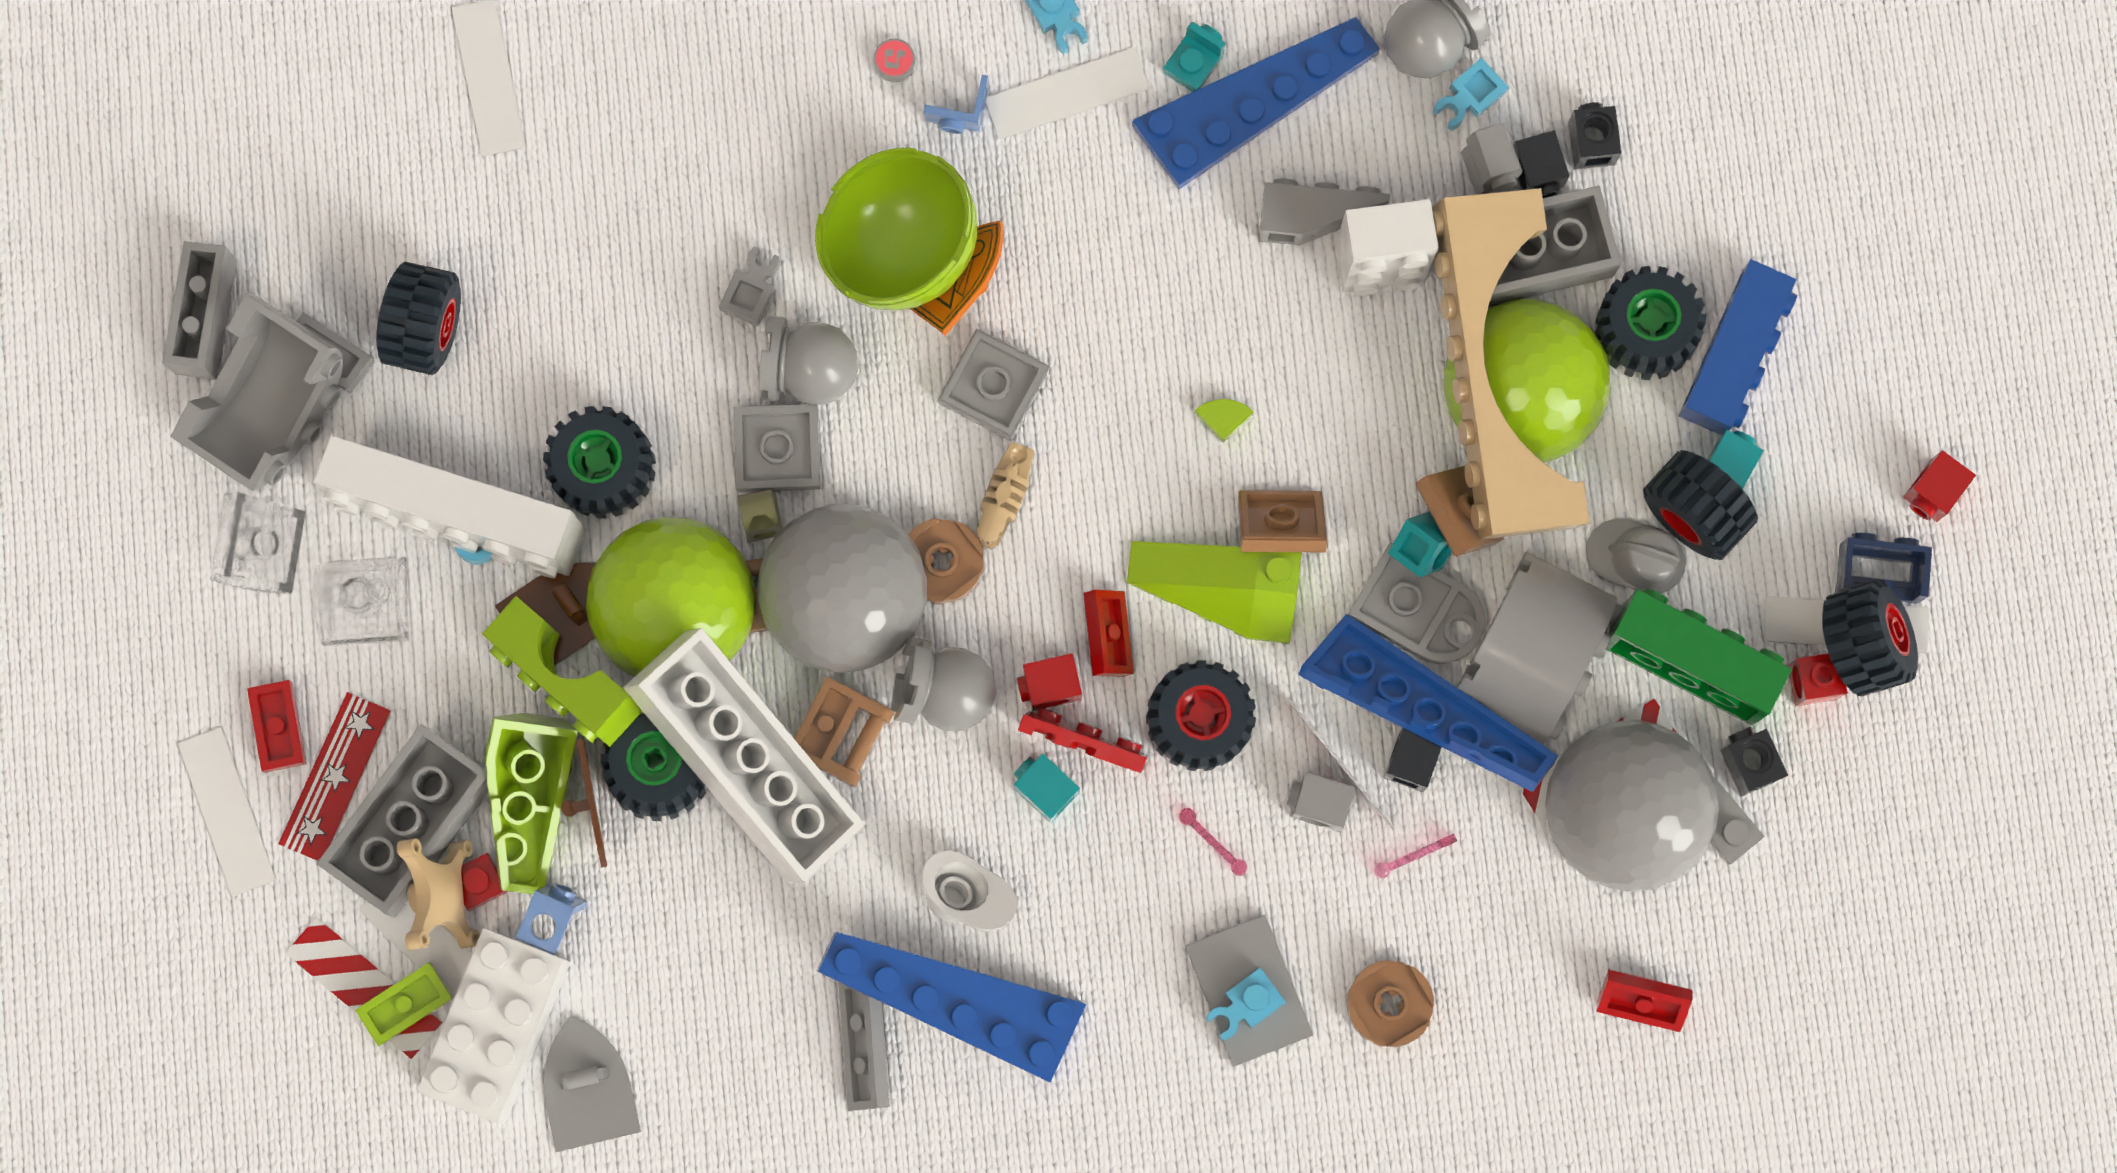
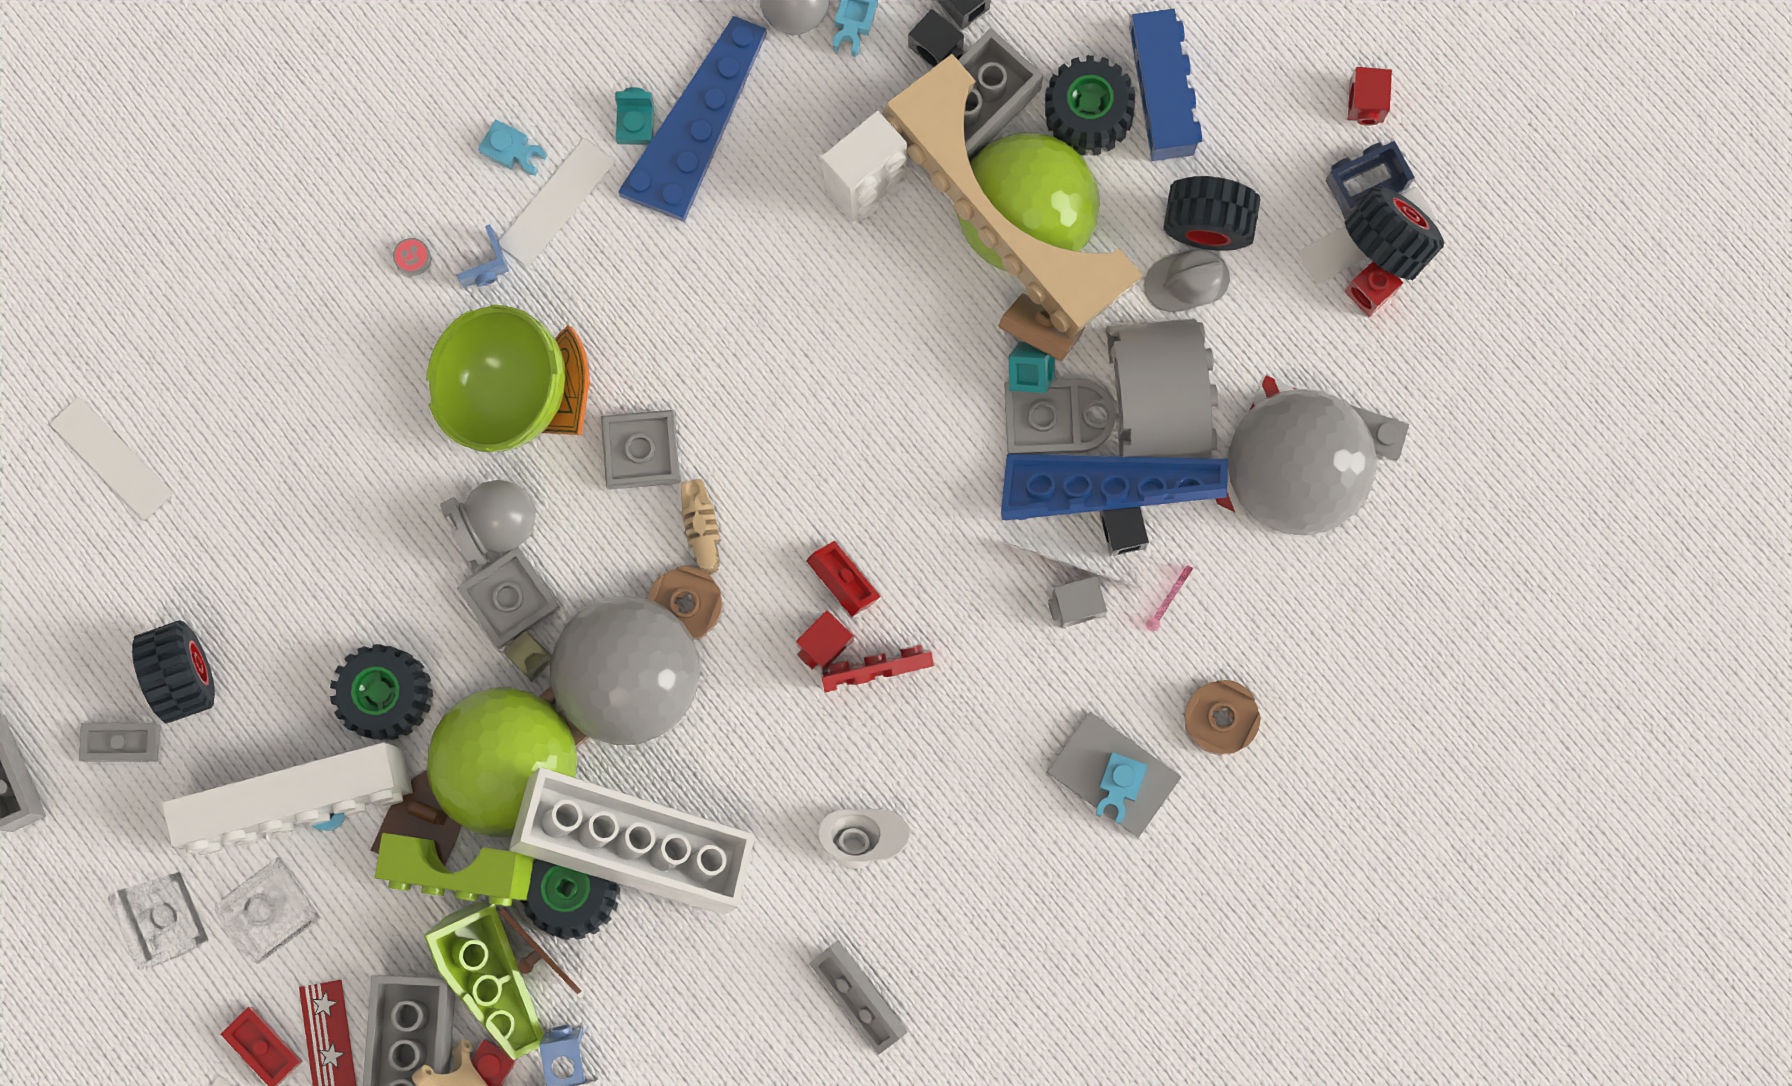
camera: 30 degrees left, 0 degrees up
(264, 397) = (92, 806): light grey cylinder -> none
(750, 293) = (414, 496): light grey plate -> none
(828, 724) = (678, 776): medium nougat plate -> none
(947, 687) = (750, 694): light grey tile -> none
(987, 1012) = (929, 916): blue wing -> none
(1045, 786) = (869, 721): teal brick -> none
(1188, 817) = (988, 676): clear pink hinge -> none
(1200, 715) = (950, 595): black wheel -> none
(1222, 585) = (910, 487): lime wedge -> none
(1223, 416) = (824, 366): lime tile -> none
(1281, 521) = (917, 416): medium nougat plate -> none
(1305, 213) = (789, 181): light grey slope -> none
(1491, 160) = (900, 57): light grey brick -> none
(1644, 1000) = (1401, 597): red plate -> none
(1698, 657) = (1281, 323): green brick -> none
(1736, 455) = (1212, 160): teal brick -> none
(1748, 779) = (1382, 372): black brick -> none

